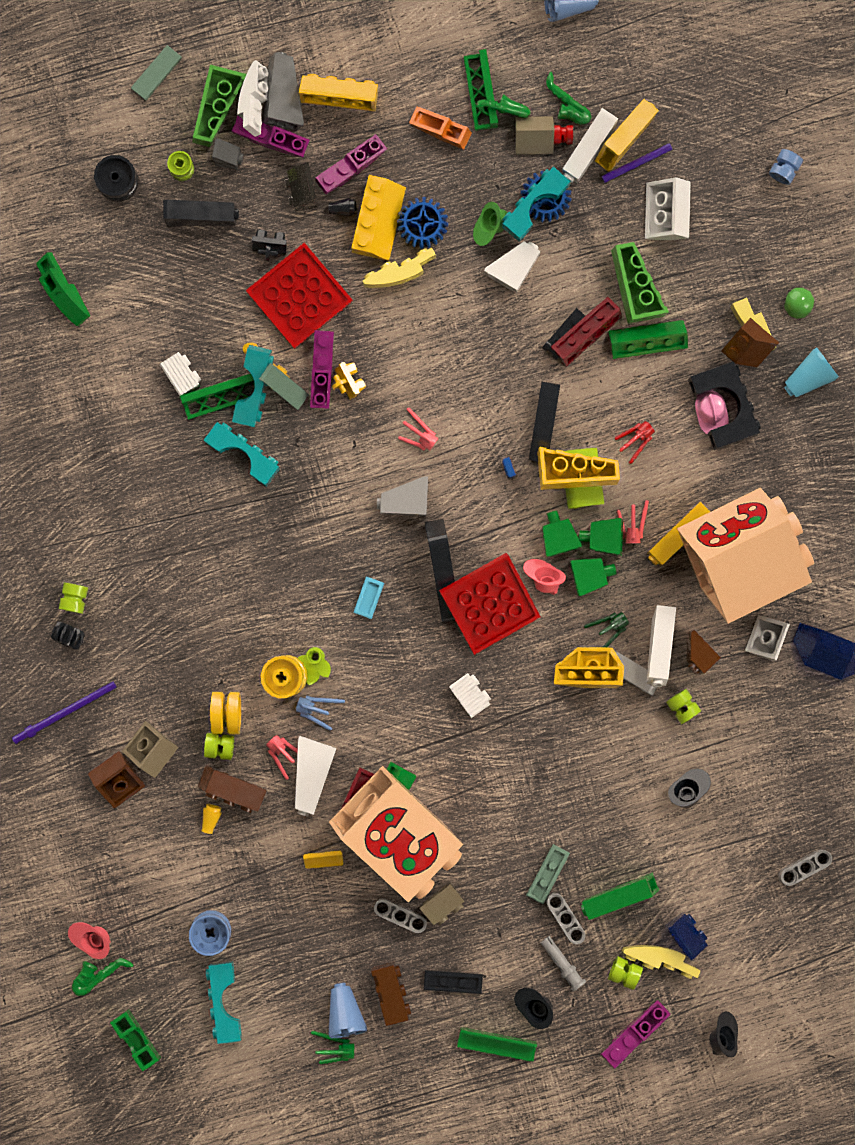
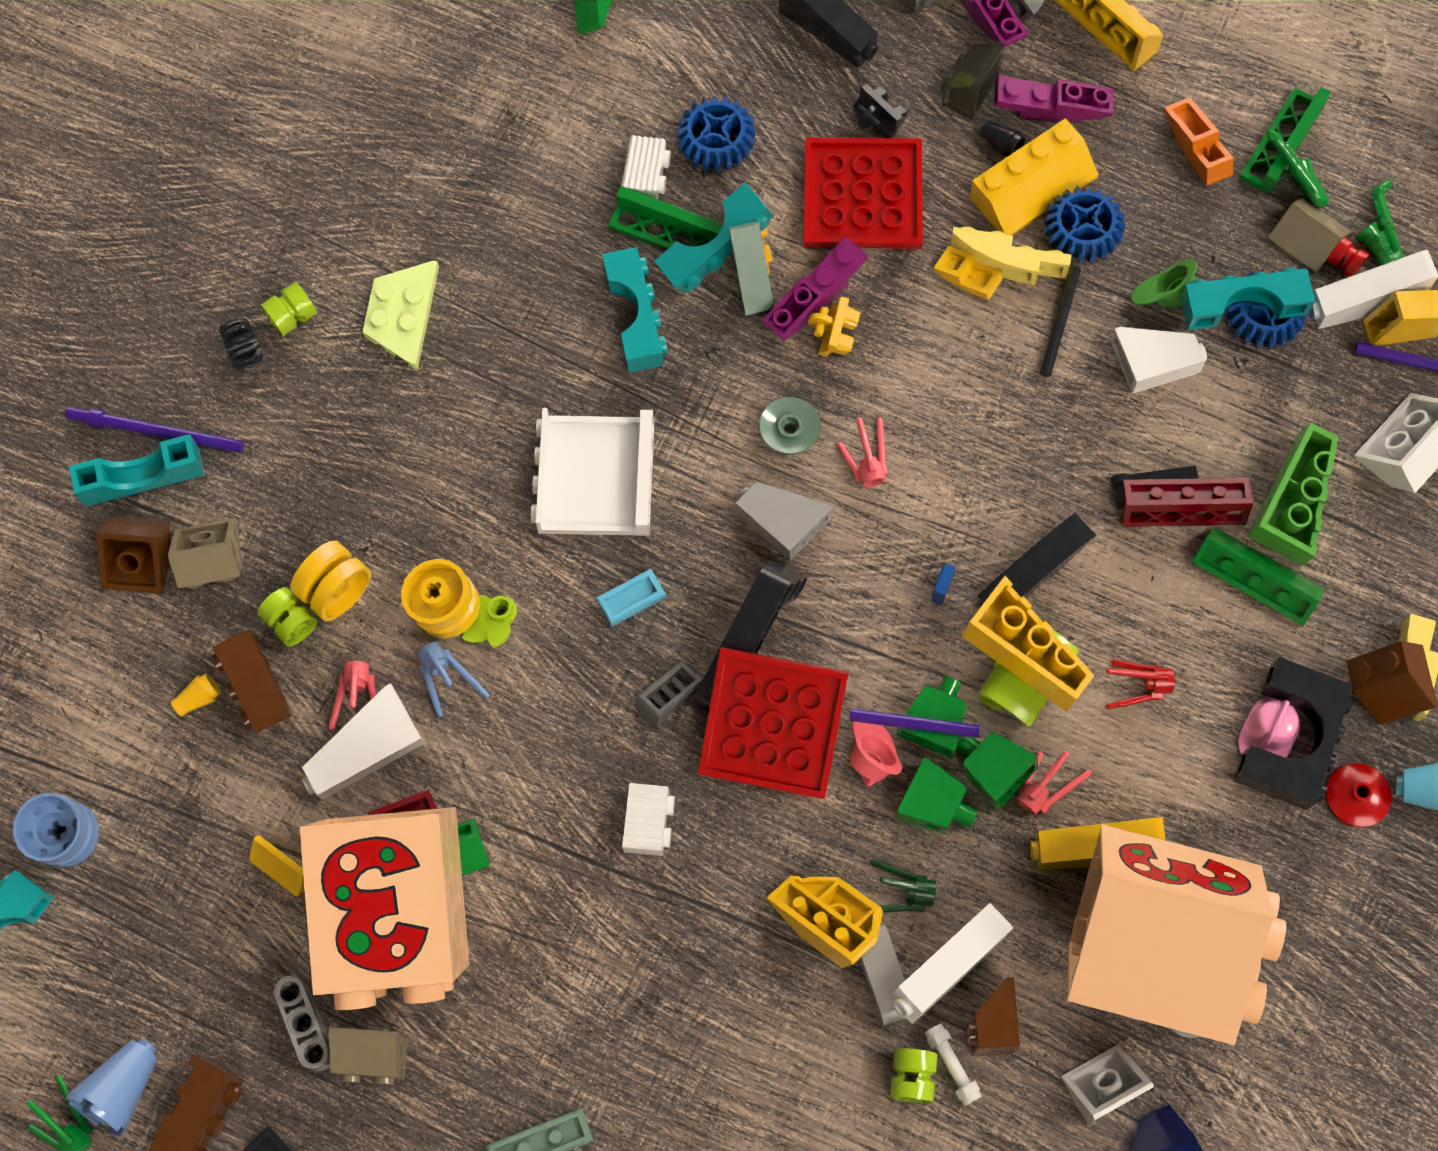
camera: 45 degrees right, 15 degrees down
(80, 740) = (108, 480): none -> teal arch
(126, 550) = (401, 310): none -> yellowish green wing
(191, 324) = (718, 123): none -> blue gear
(297, 552) = (593, 474): none -> white panel
(370, 440) = (790, 413): none -> sand green dish
(386, 295) = (964, 271): none -> yellow slope
(427, 644) = (653, 707): none -> dark grey slope
(452, 285) = (1060, 322): none -> black bar
(553, 549) = (914, 723): none -> dark purple bar
(711, 692) = (968, 1091): none -> white bar
(767, 416) = (1346, 803): none -> red dish

